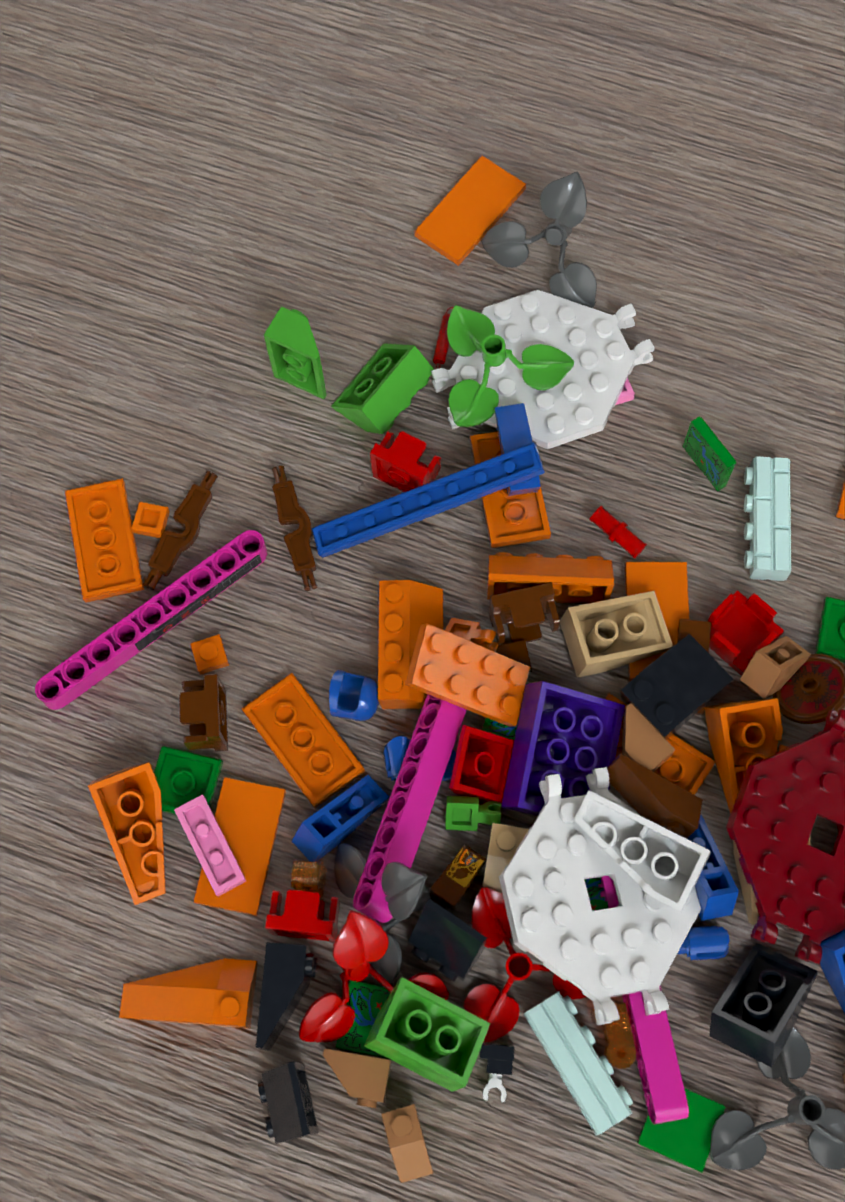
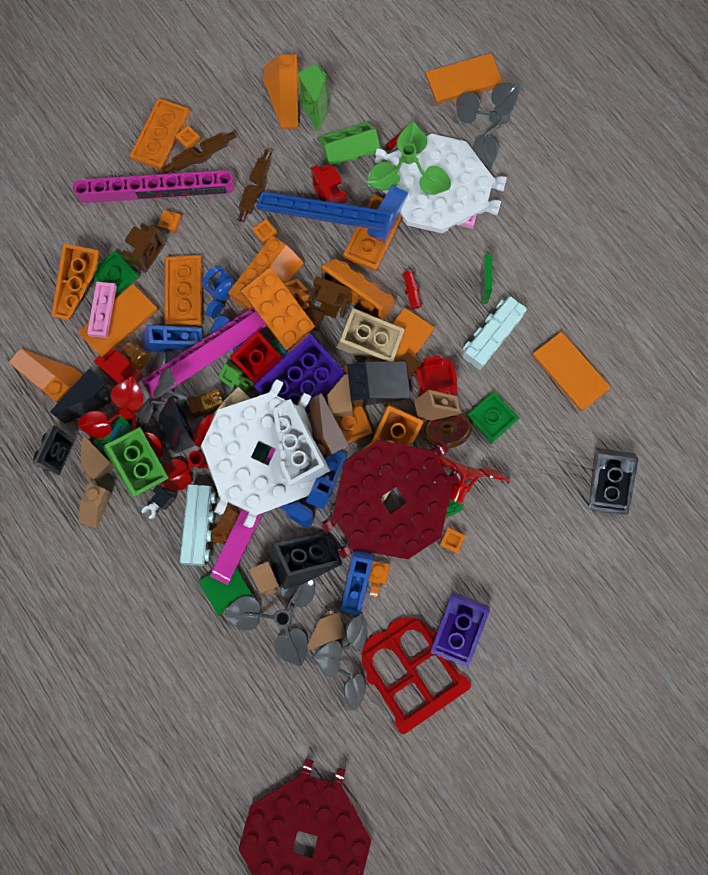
camera: 35 degrees right, 5 degrees up
(230, 364) = (282, 87): none -> orange wedge
(358, 581) = (264, 231): none -> orange plate
(369, 735) = (214, 309): none -> blue tile
(732, 1070) = (265, 579): none -> medium nougat slope

